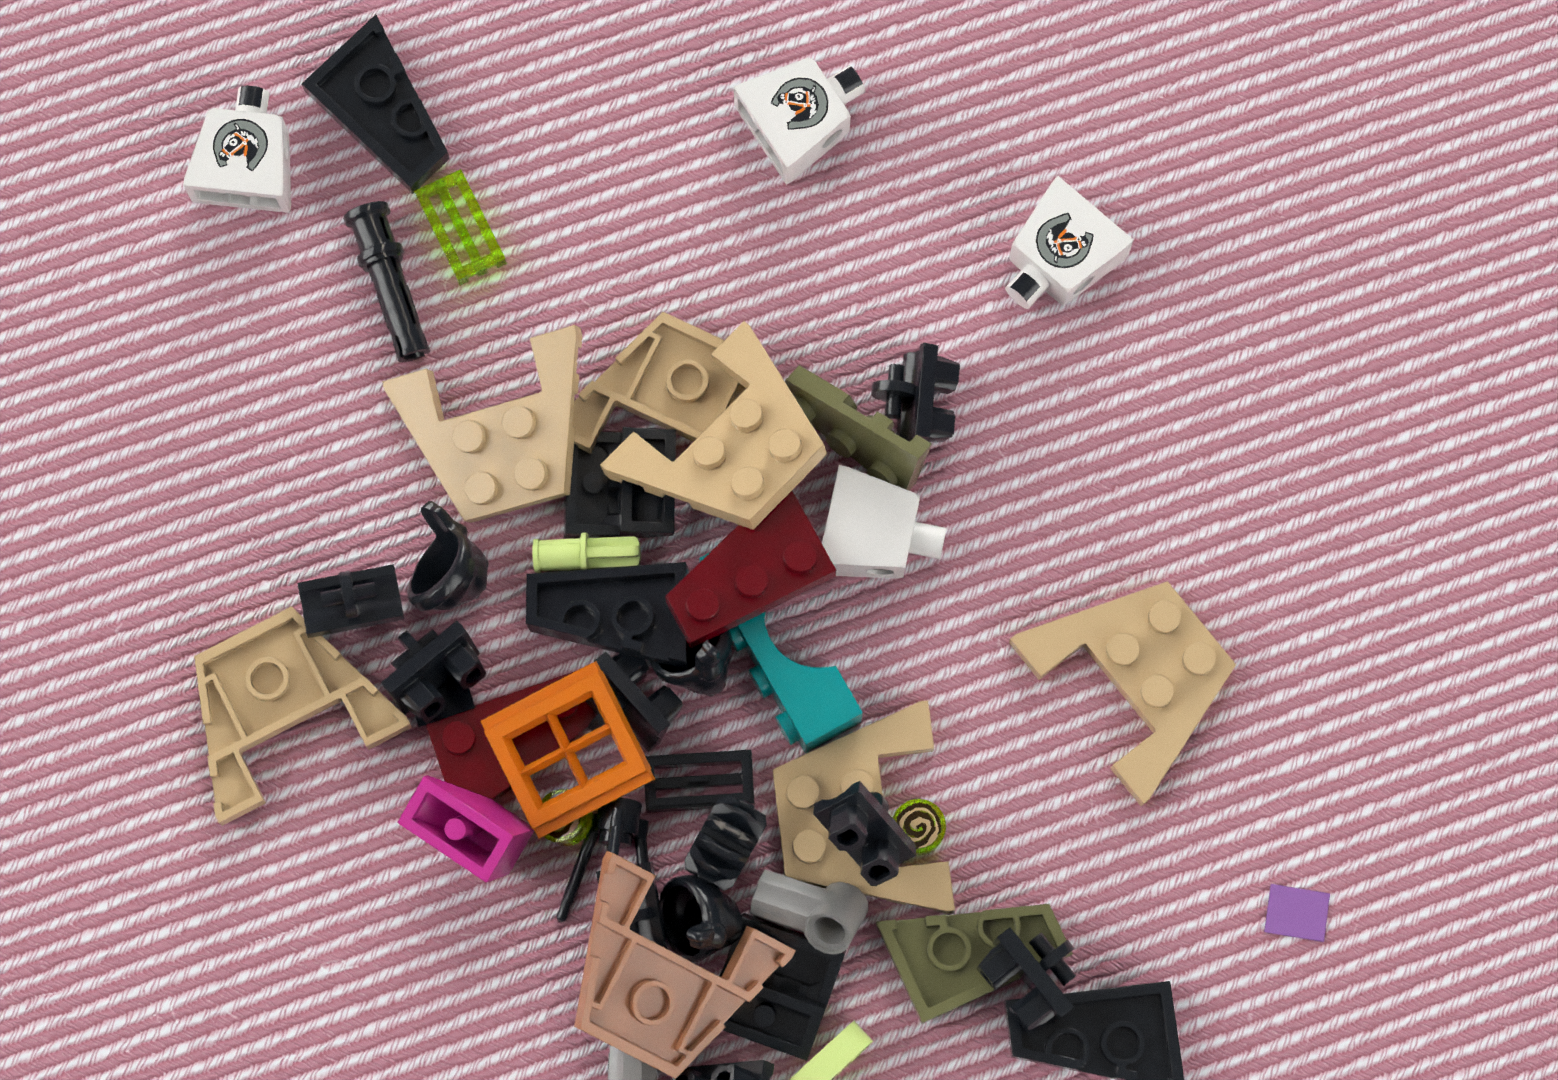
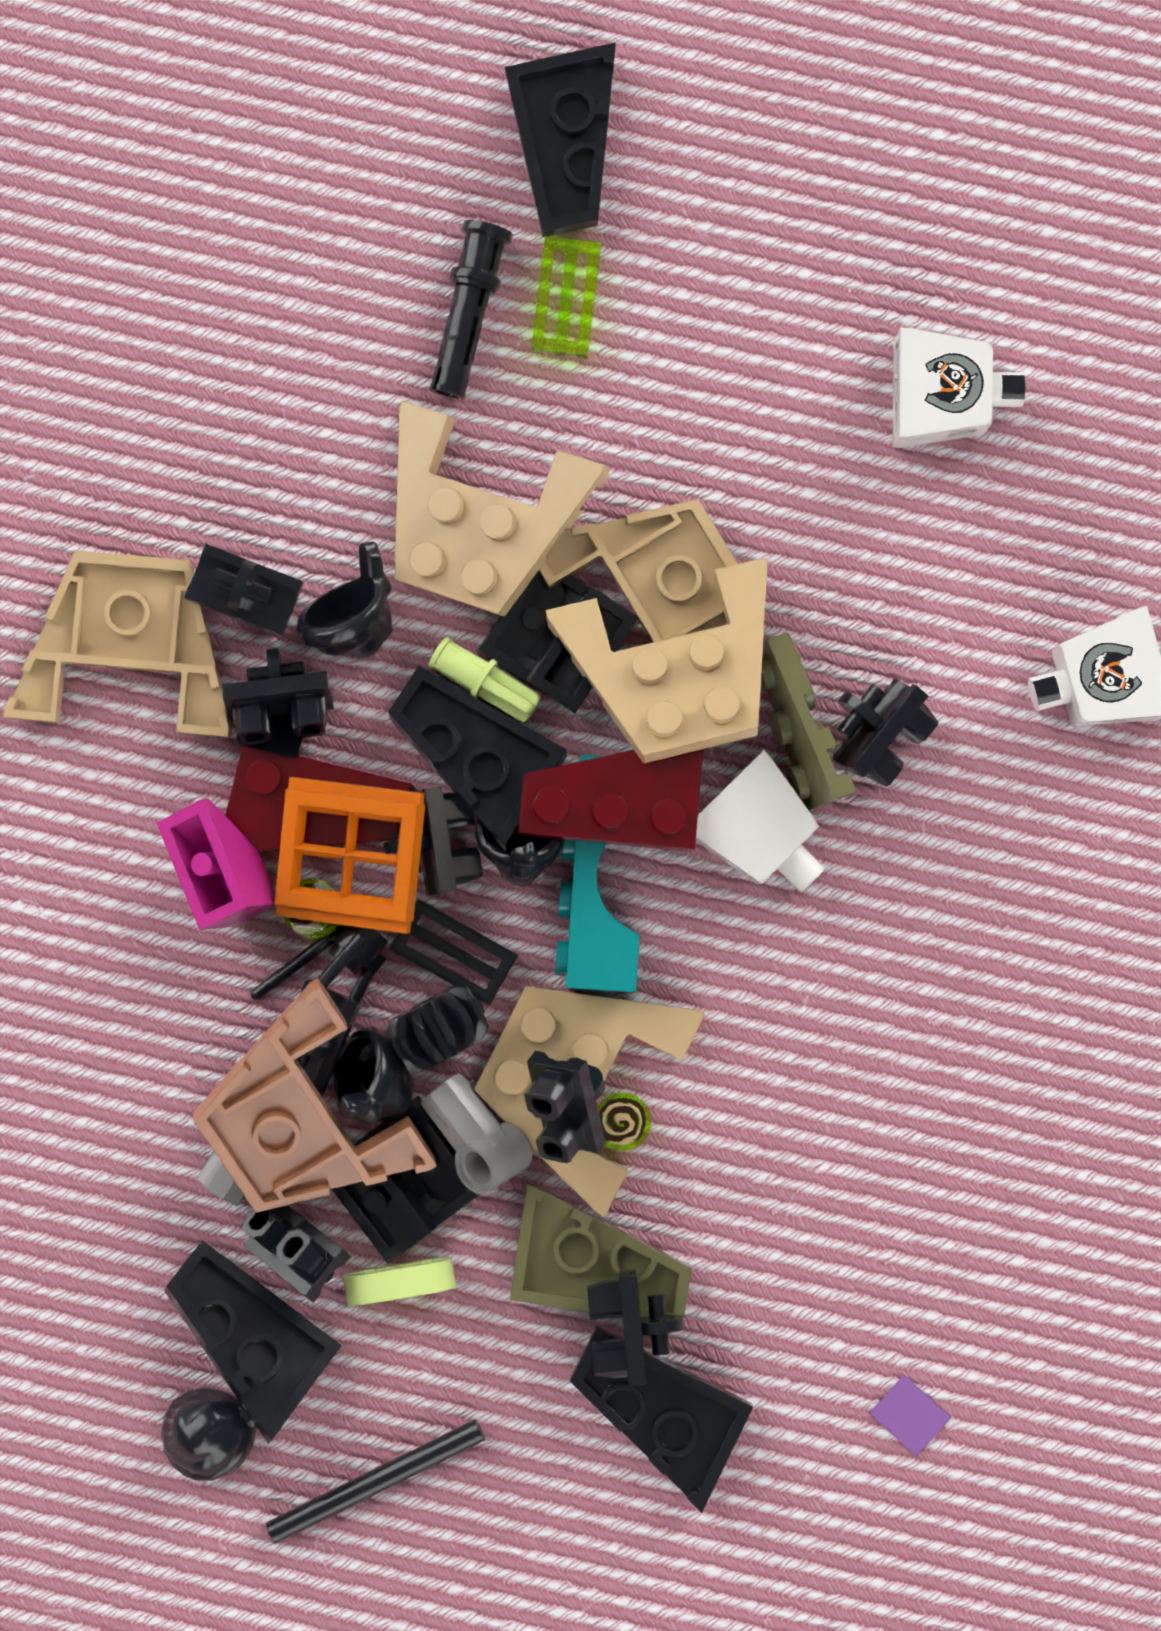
camera: 35 degrees right, 10 degrees up
(242, 157) = (407, 103): white torso -> none
(1156, 660) = (936, 1109): tan wing -> none

